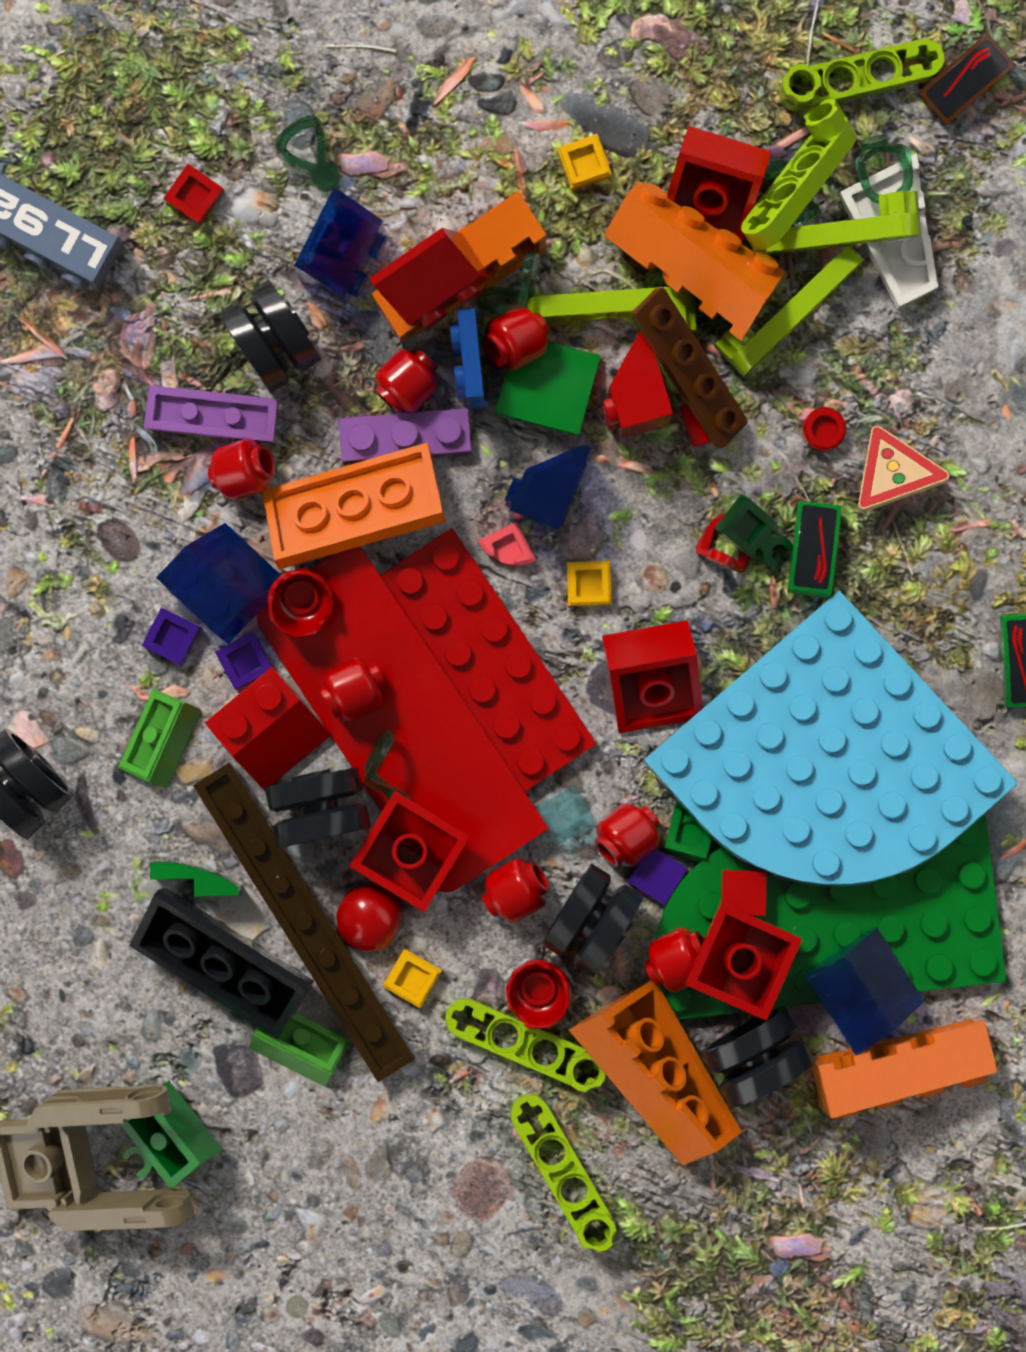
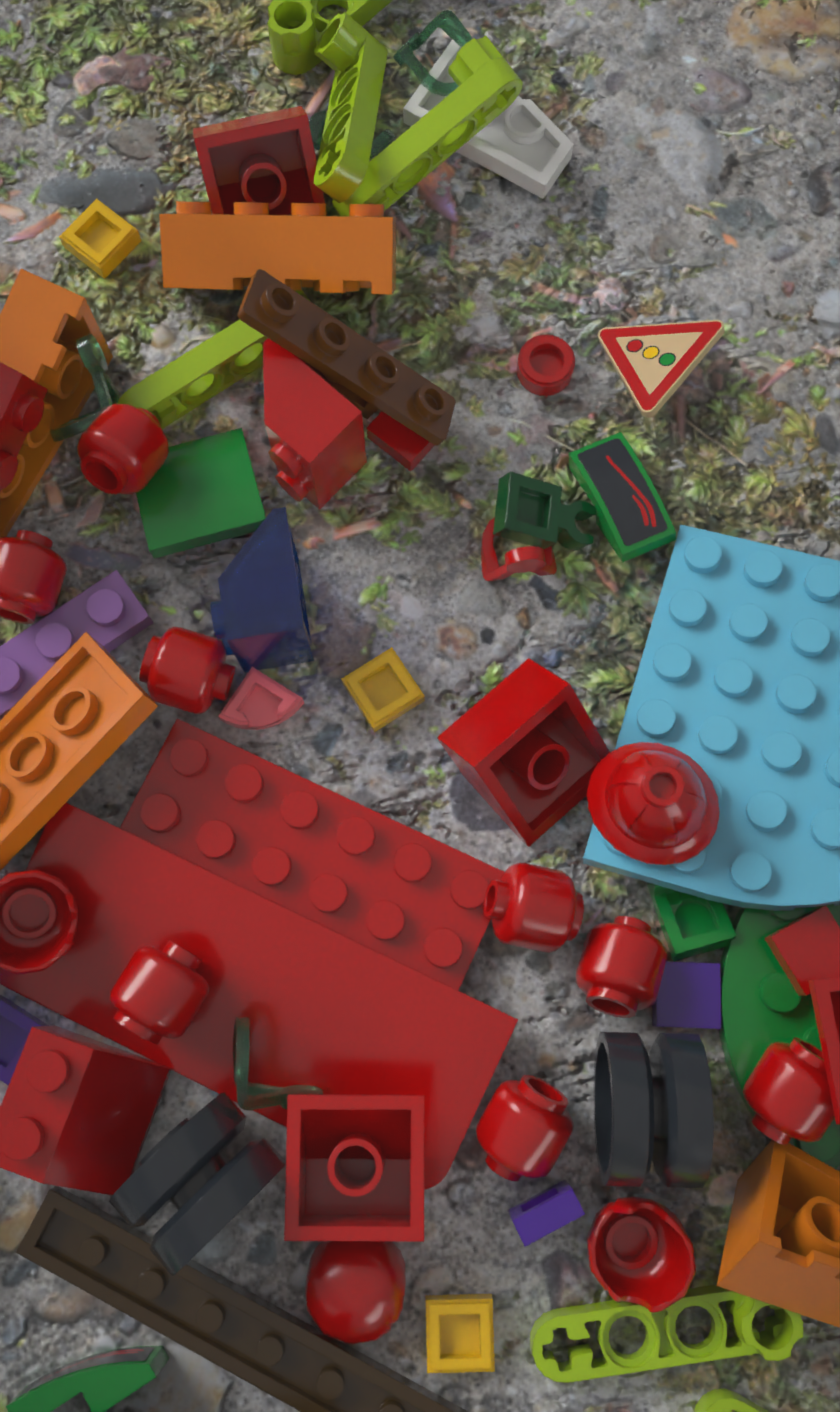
camera: 35 degrees left, 10 degrees down
(465, 344) = (78, 504): blue plate -> none
(475, 502) = (186, 670): none -> red head
(499, 942) = (545, 1212): none -> dark purple tile
(566, 814) = (527, 988): clear light blue tile -> none
(597, 771) = (534, 907): none -> red head
(703, 752) = (653, 803): none -> red hat
(754, 347) = (407, 322): lime beam -> none

